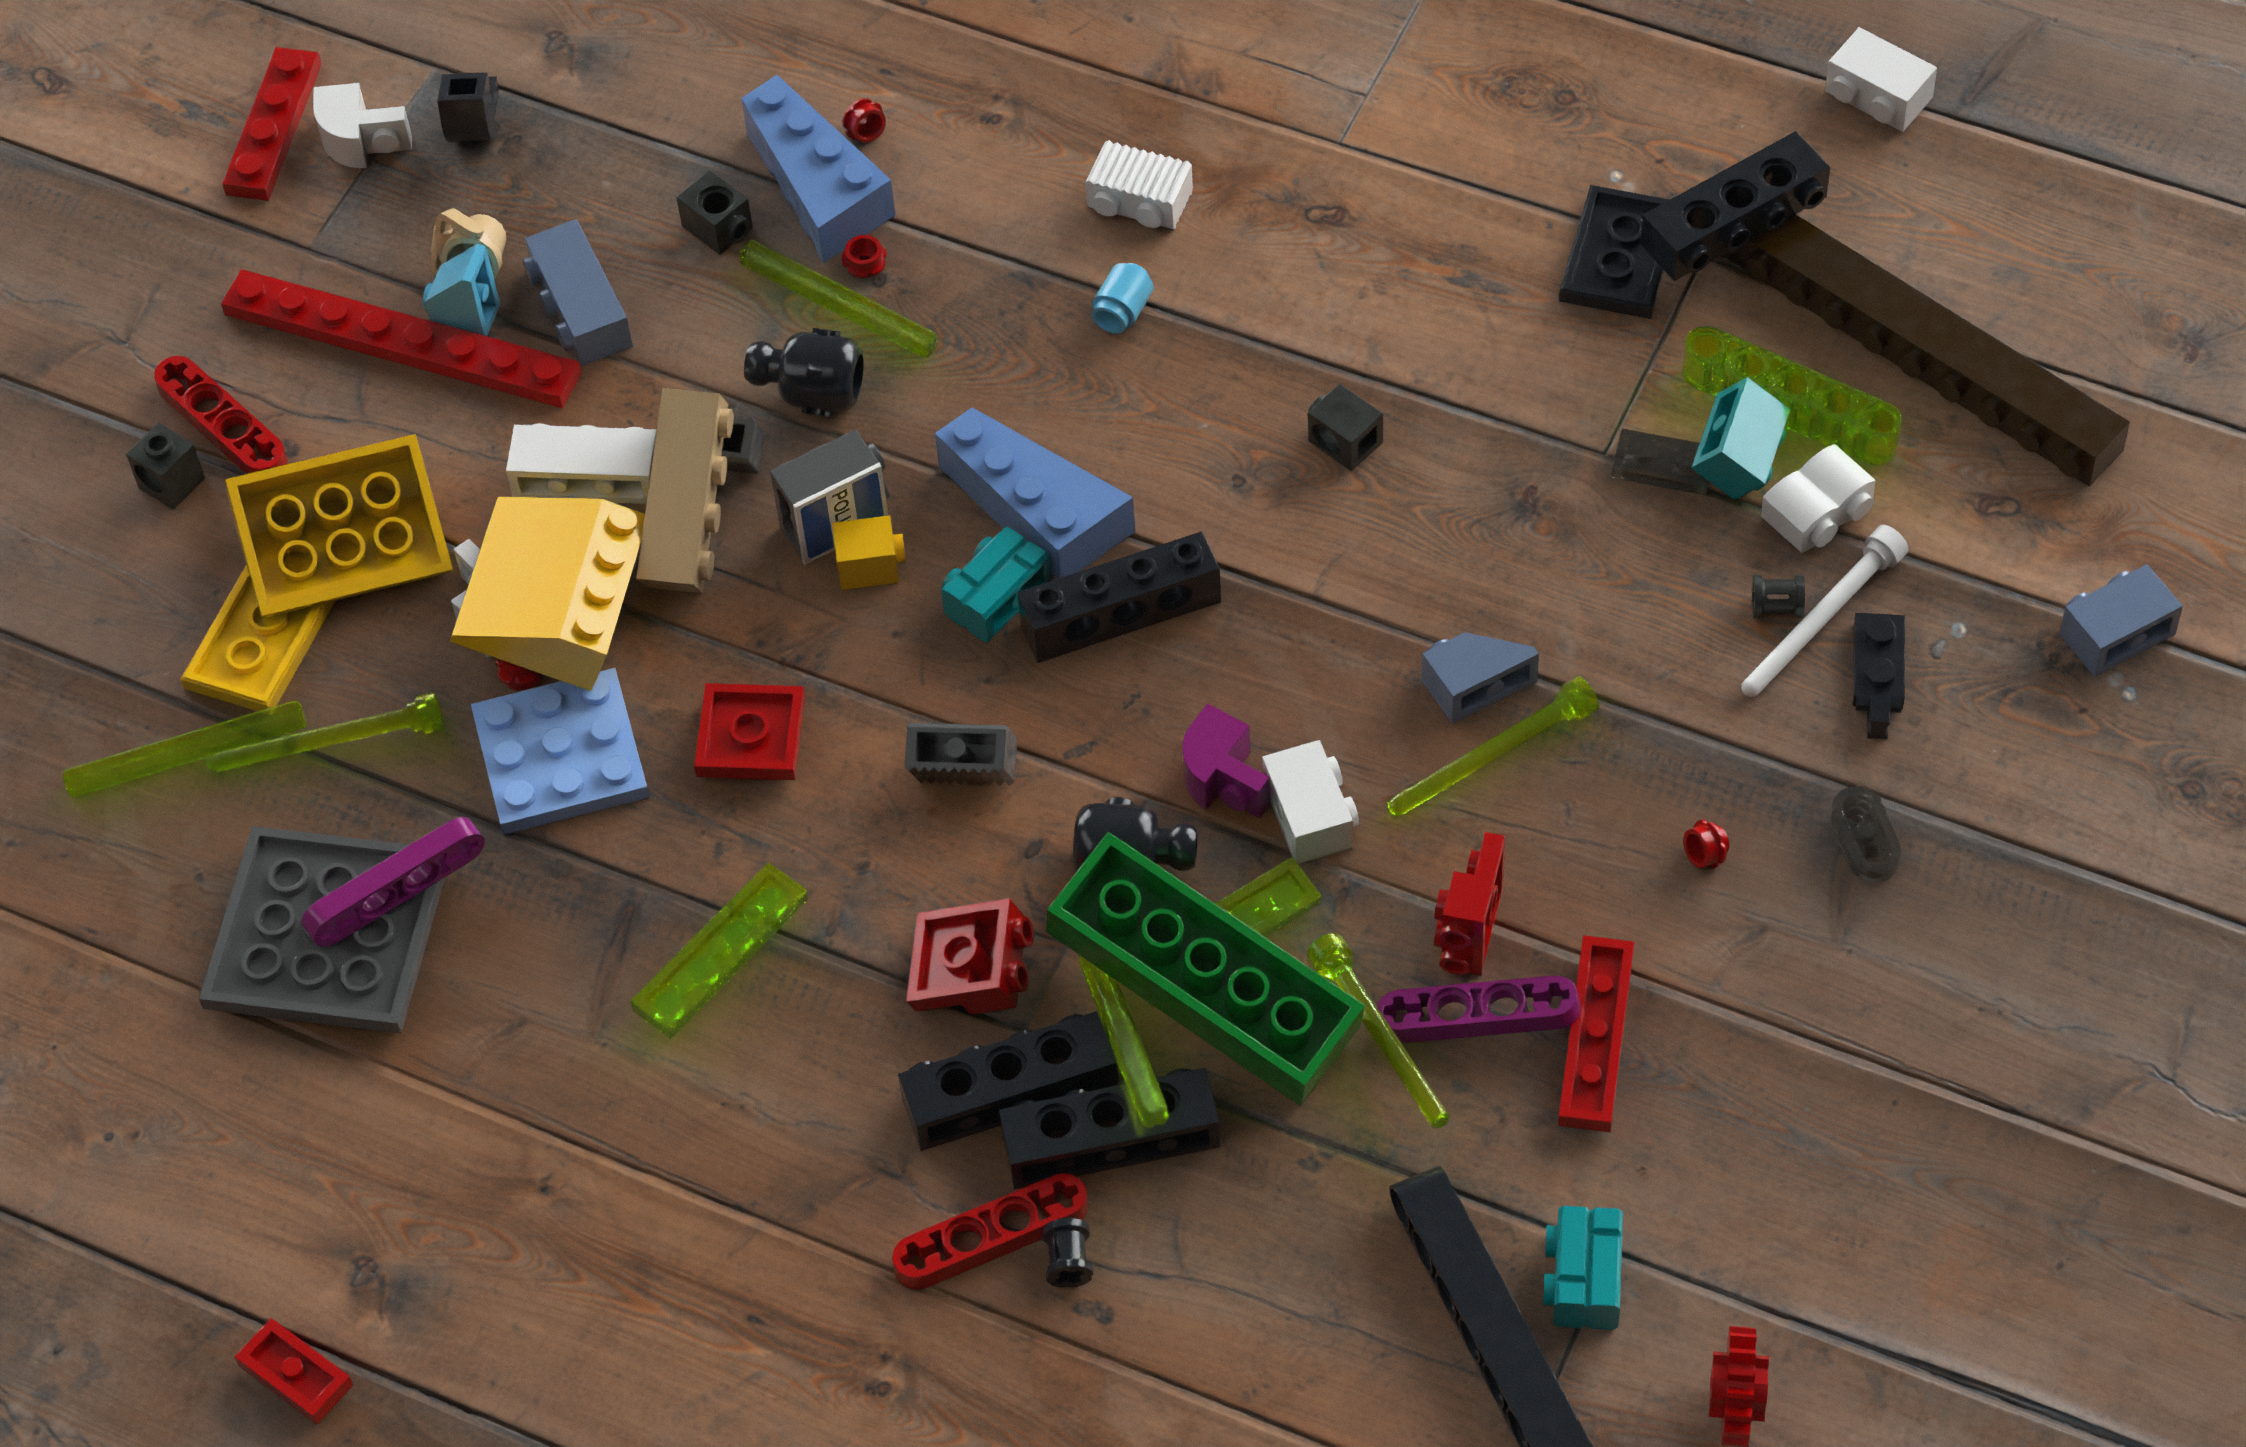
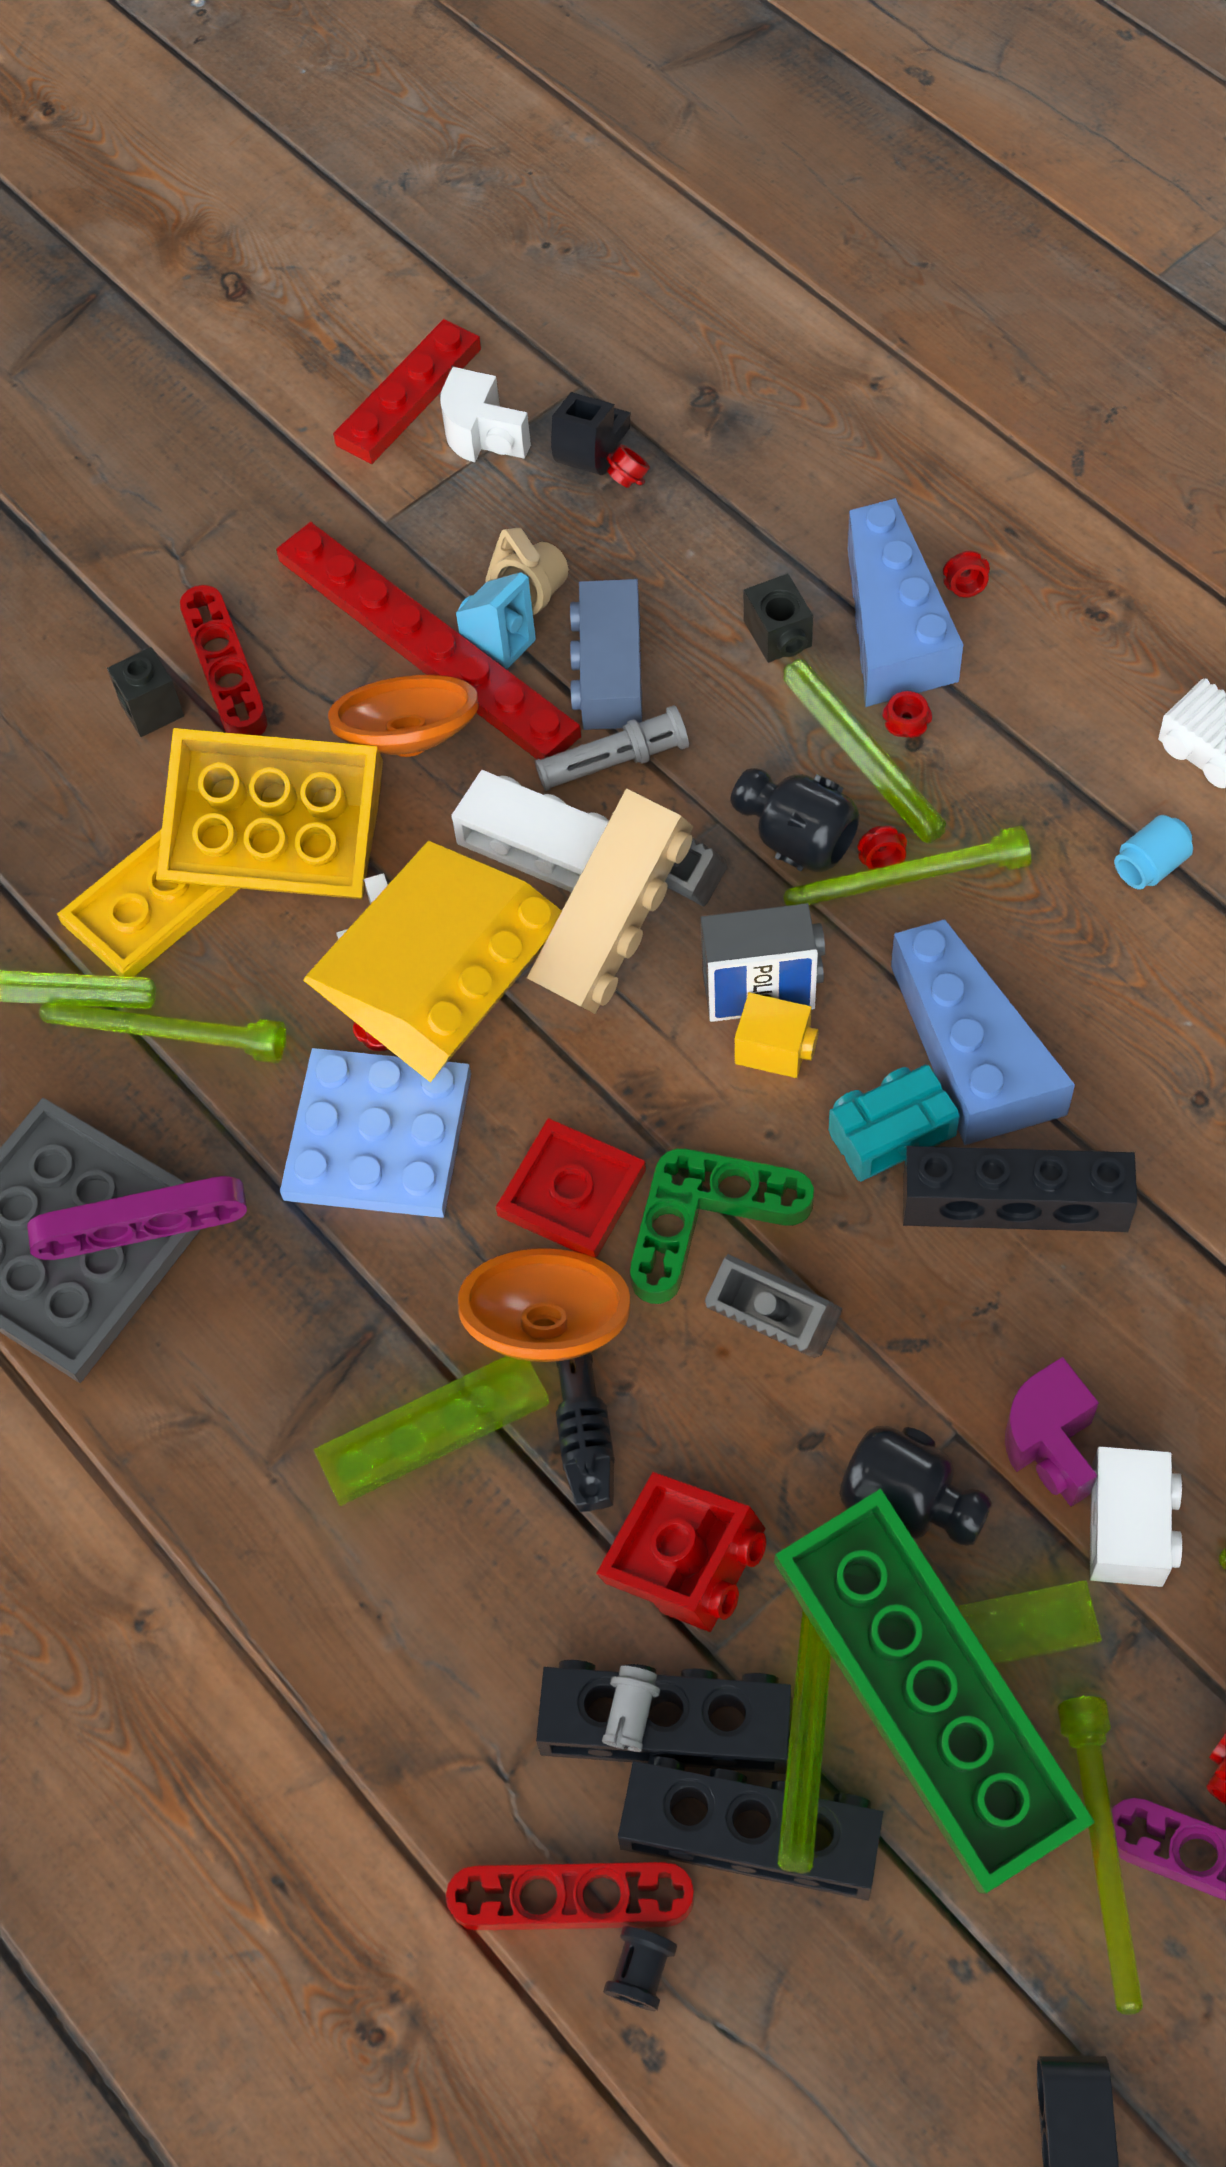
camera: 25 degrees right, 5 degrees up
(419, 401) = (404, 713): none -> orange dish
(515, 125) = (627, 466): none -> red plate
(635, 359) = (635, 742): none -> light grey pin
(772, 821) = (544, 1304): none -> orange dish
(848, 907) = (585, 1436): none -> black hinge
(852, 705) = (689, 1198): none -> green beam
(891, 373) = (882, 847): none -> red plate
(979, 1057) = (630, 1707): none -> light grey pin
(998, 337) = (1007, 850): none -> clear neon green piece

